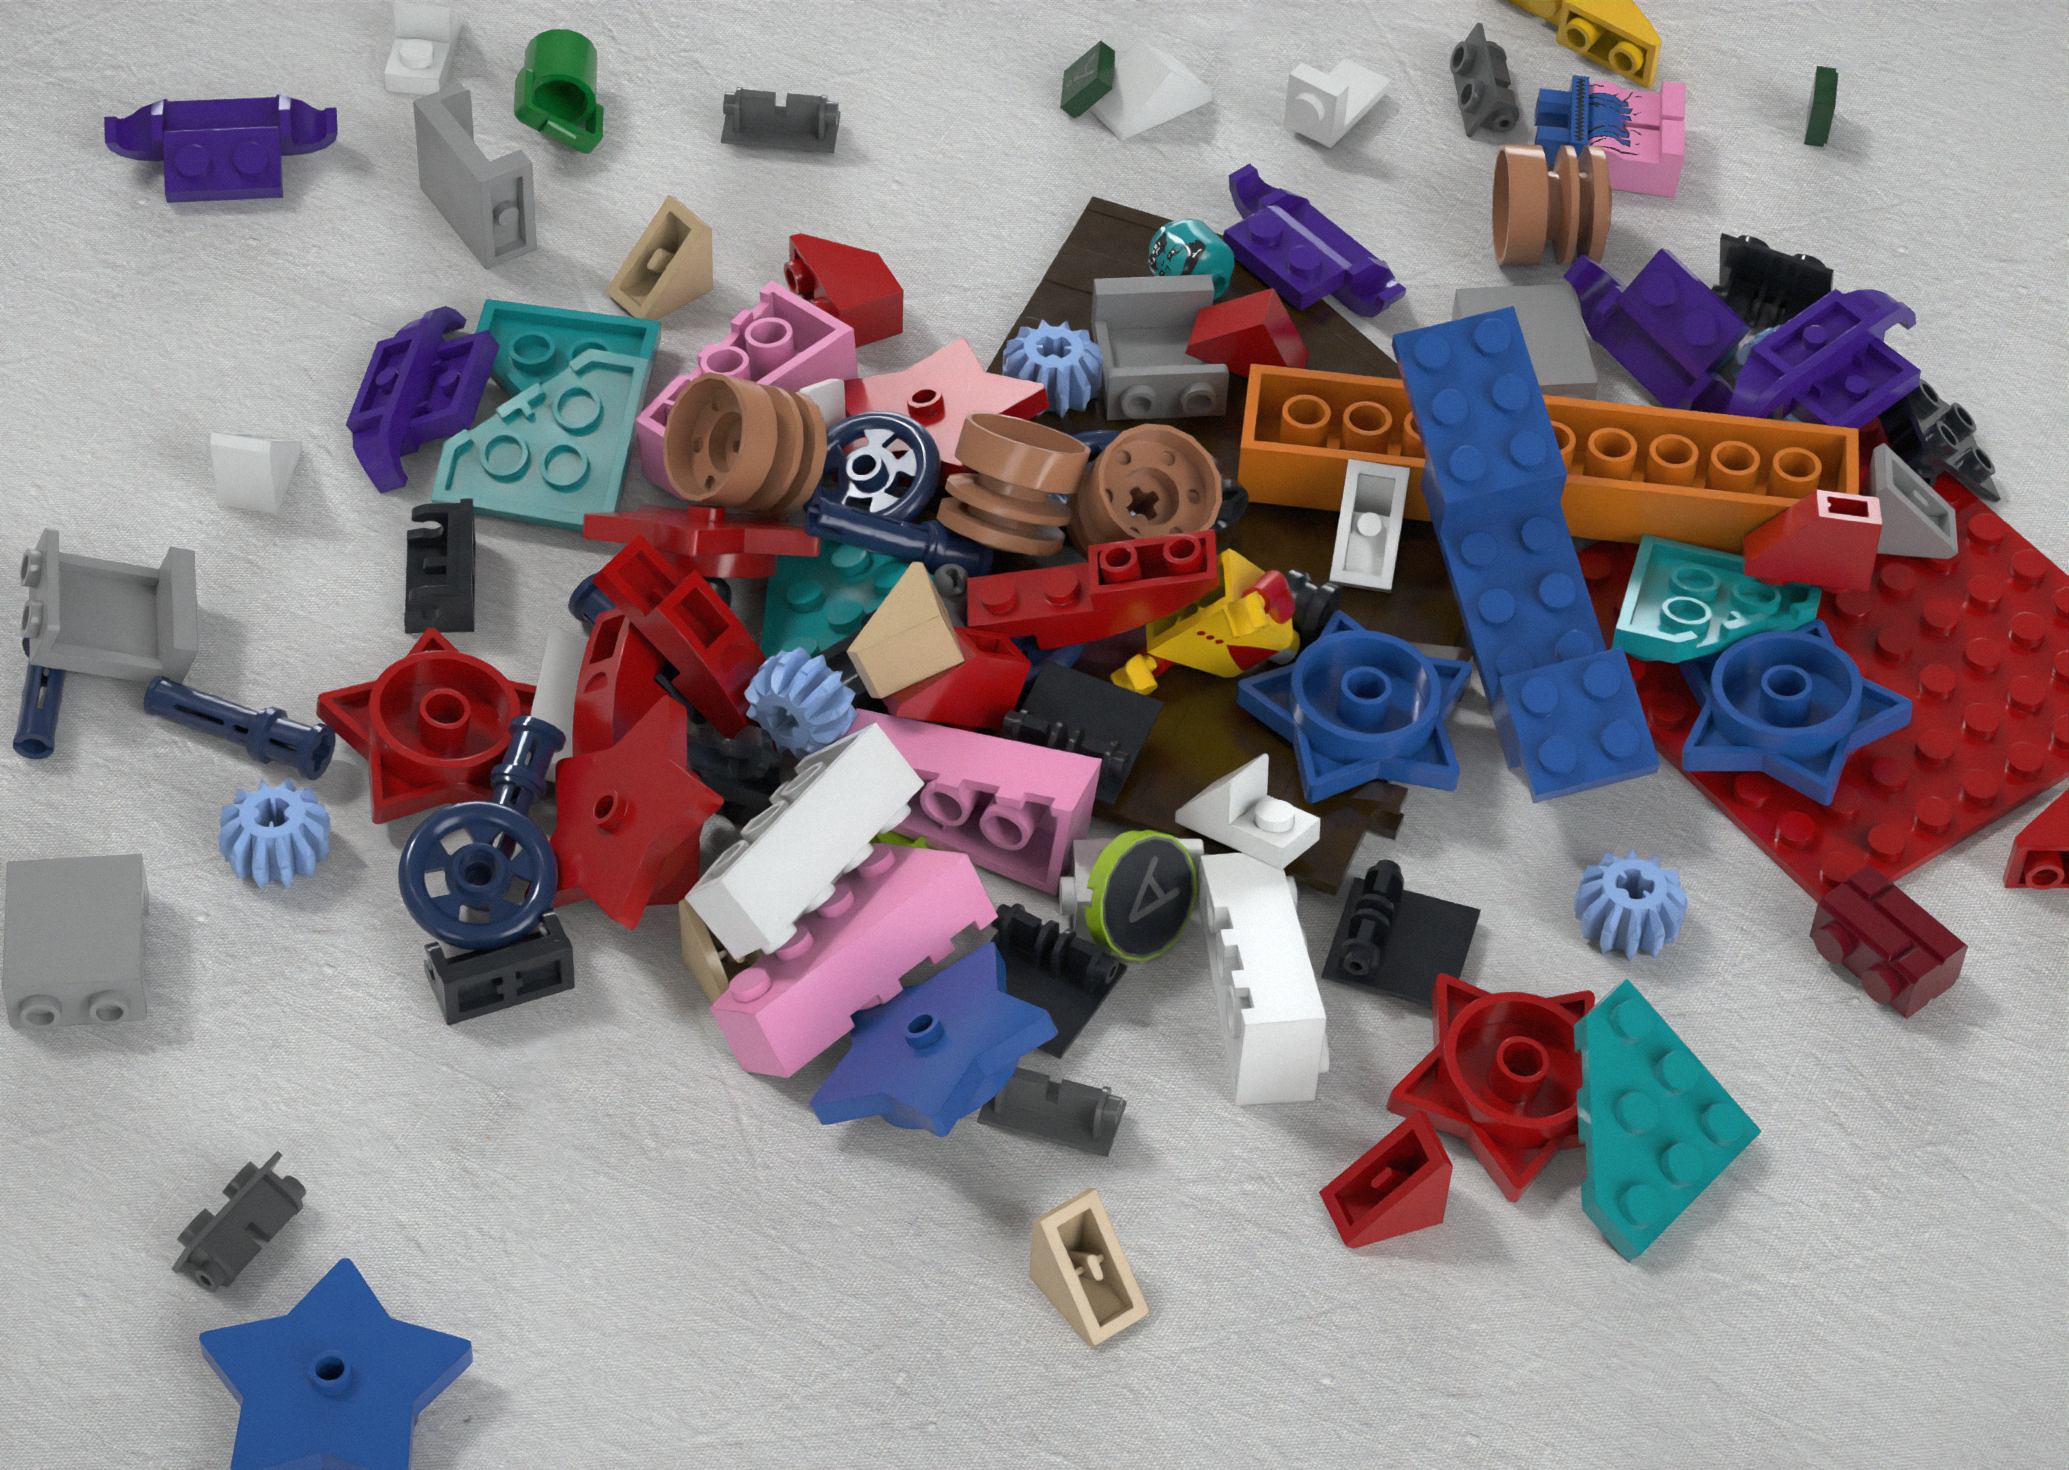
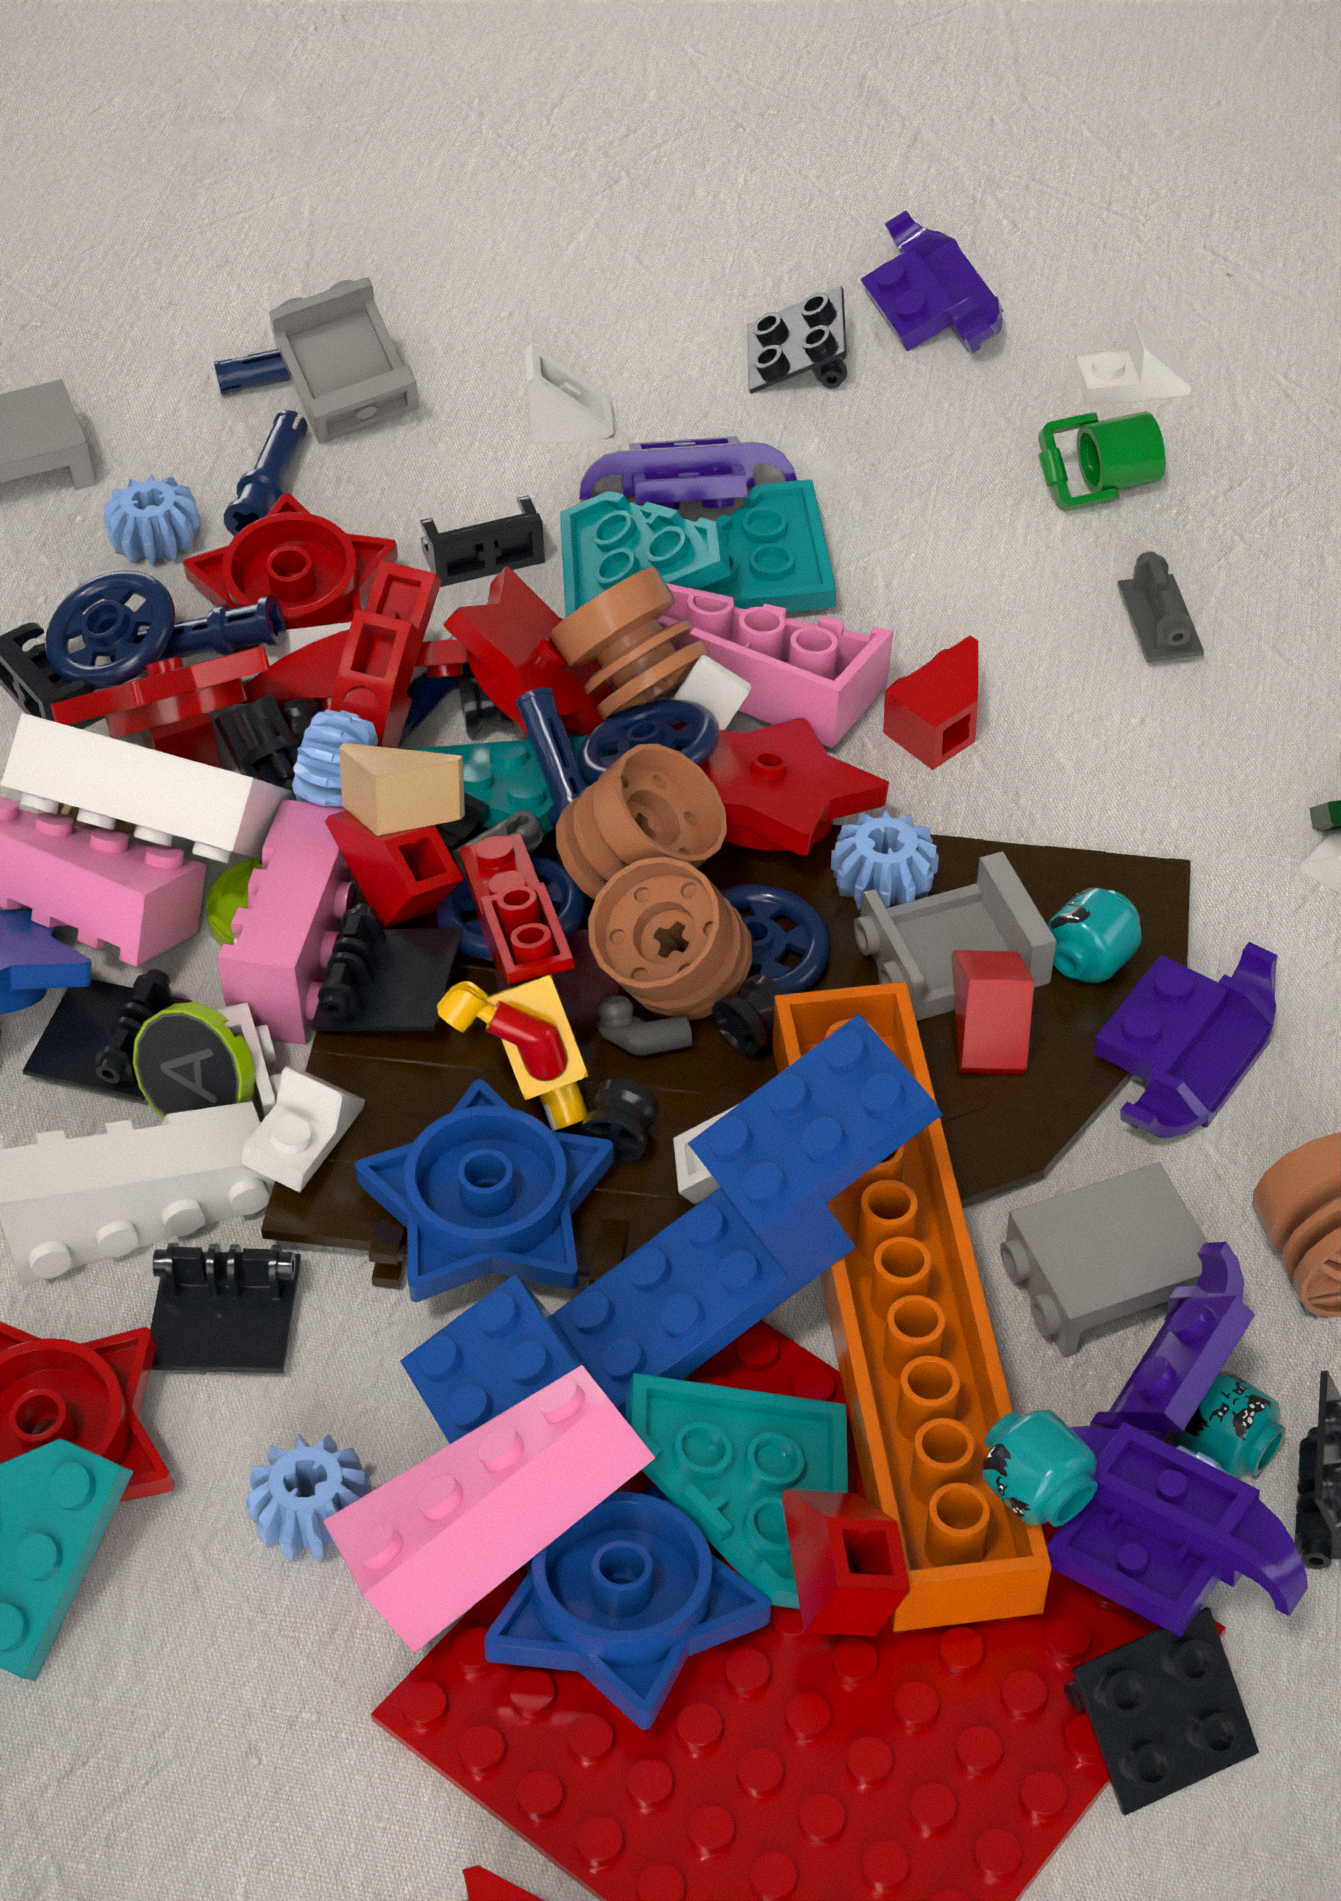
camera: 80 degrees right, 0 degrees up
(248, 260) = (799, 341): none -> black hinge
(480, 198) = (938, 413): light grey panel -> none
(666, 265) = (915, 582): tan slope -> none
(1722, 763) = (485, 1505): none -> bright pink wedge
(1798, 392) = (1039, 1467): none -> teal head
(1887, 942) = (313, 1763): dark red brick -> none
(1912, 513) = (993, 1672): light grey slope -> none

